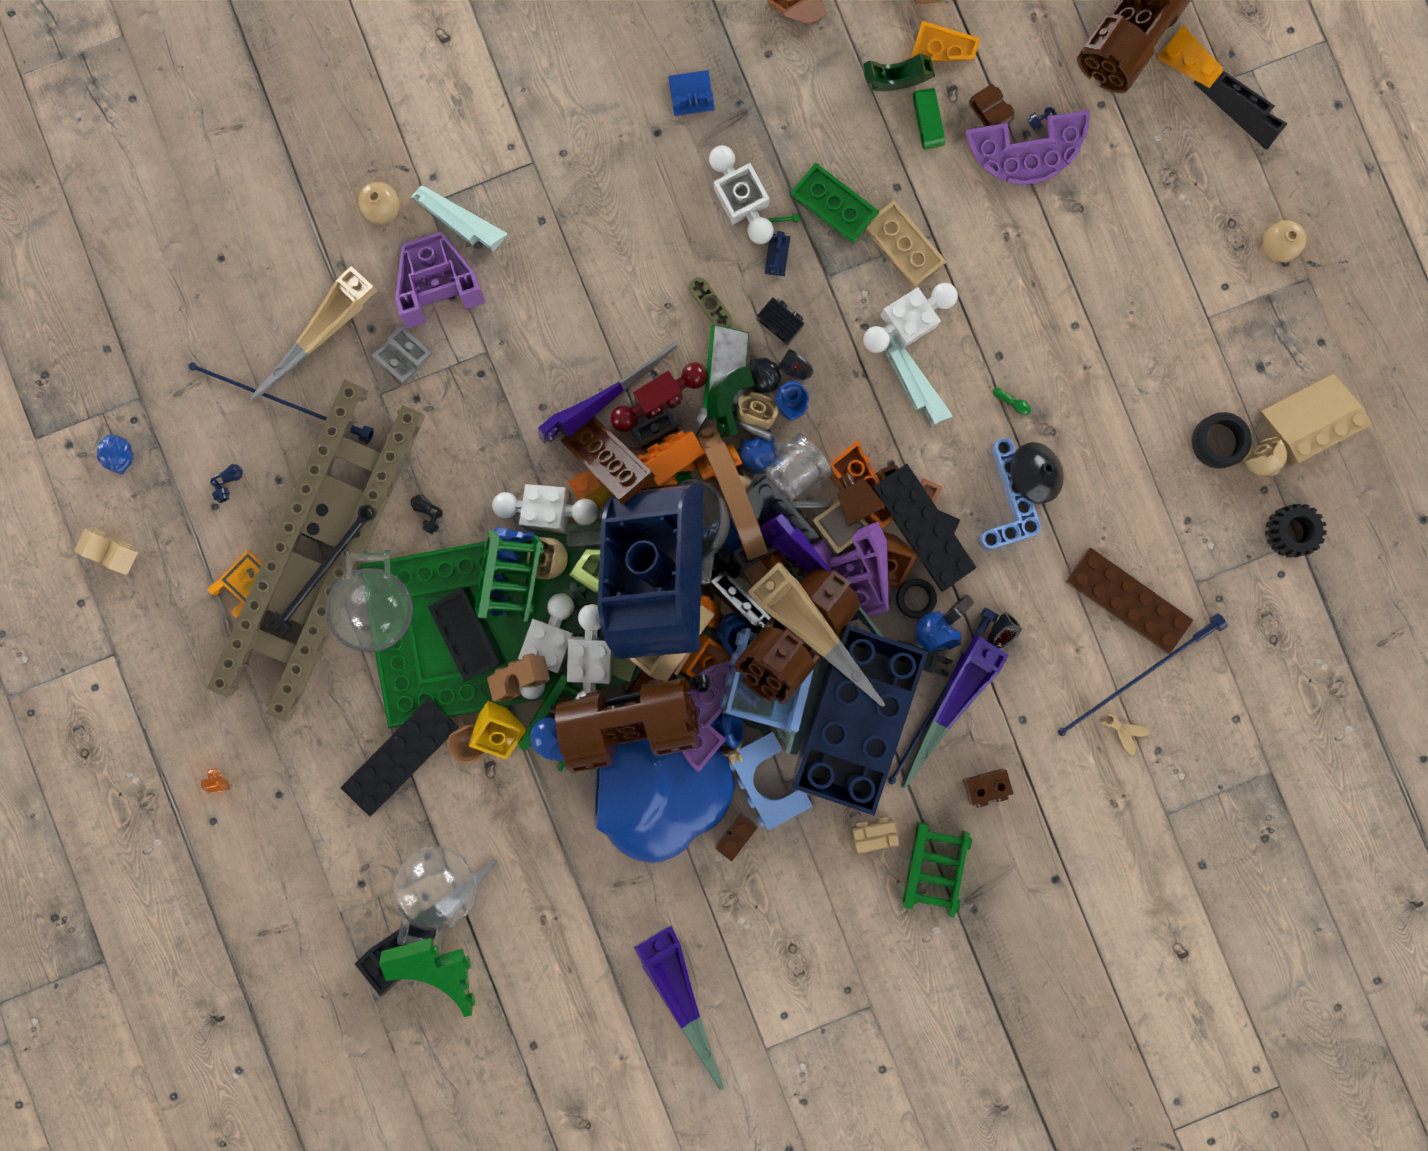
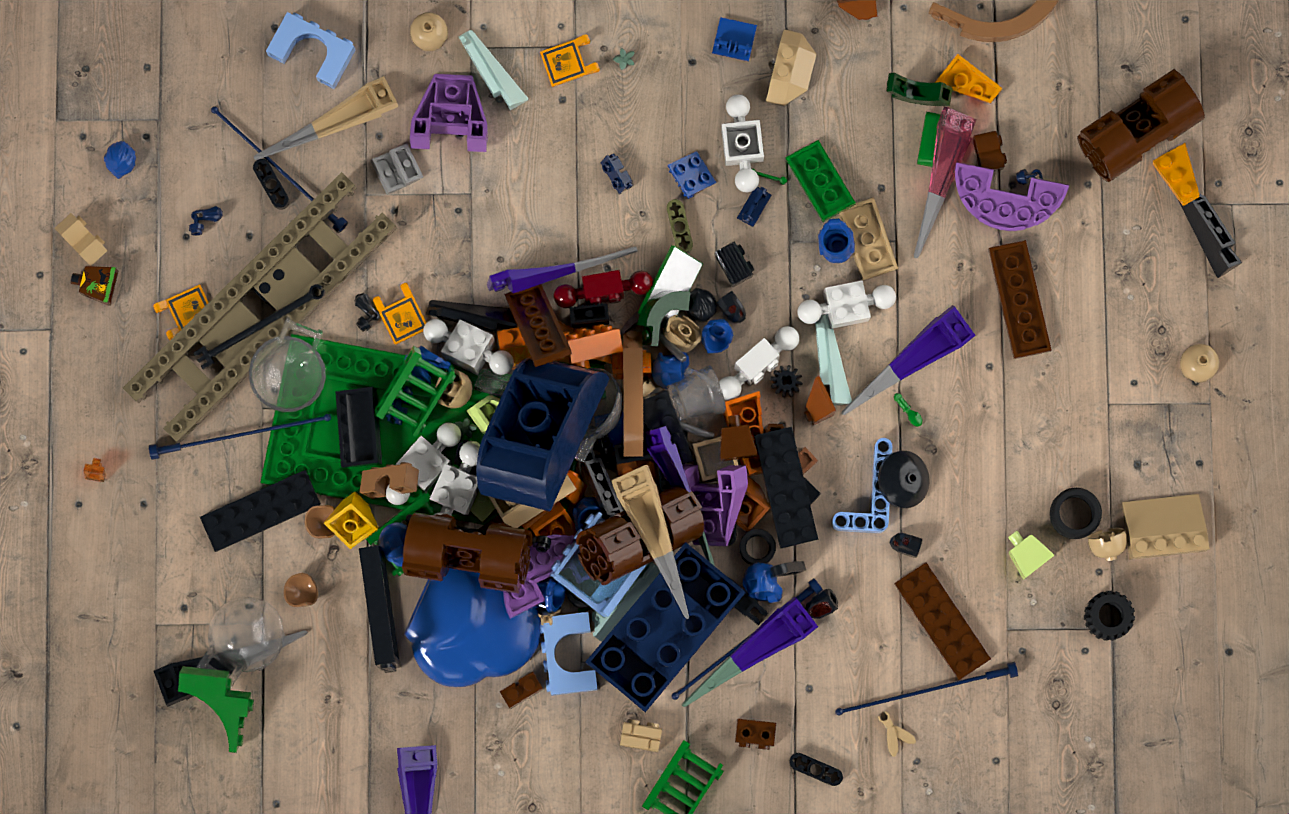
camera: 20 degrees right, 5 degrees down
(141, 589) = (97, 283): none -> reddish brown torso
(242, 252) = (295, 29): none -> light blue arch
(269, 738) = (155, 451): none -> dark blue piece
(288, 434) = (273, 198): none -> black beam
(466, 505) = (403, 317): none -> light orange flag
(473, 823) = (300, 590): none -> medium nougat helmet
(530, 182) = (565, 61): none -> light orange flag
(544, 473) = (480, 316): none -> black wedge
(560, 816) = (379, 608): none -> black window
(588, 154) = (624, 58): none -> sand green plant
(632, 280) = (611, 166): none -> dark blue hinge
(701, 246) = (691, 174): none -> blue hinge
(761, 101) = (791, 69): none -> tan wedge
(845, 407) = (757, 361): none -> white brick
(874, 413) = (786, 388): none -> black gear
(876, 257) = (836, 241): none -> blue helmet
(921, 428) = (819, 405): none -> dark orange slope
(952, 115) = (950, 147): none -> clear pink plate
(1015, 318) = (935, 341): none -> dark purple plate
(1046, 803) = (818, 777): none -> black beam
(1064, 537) = (906, 544): none -> black rock
(1080, 246) = (1019, 299): none -> reddish brown plate
(1190, 500) = (1028, 554): none -> yellowish green torso

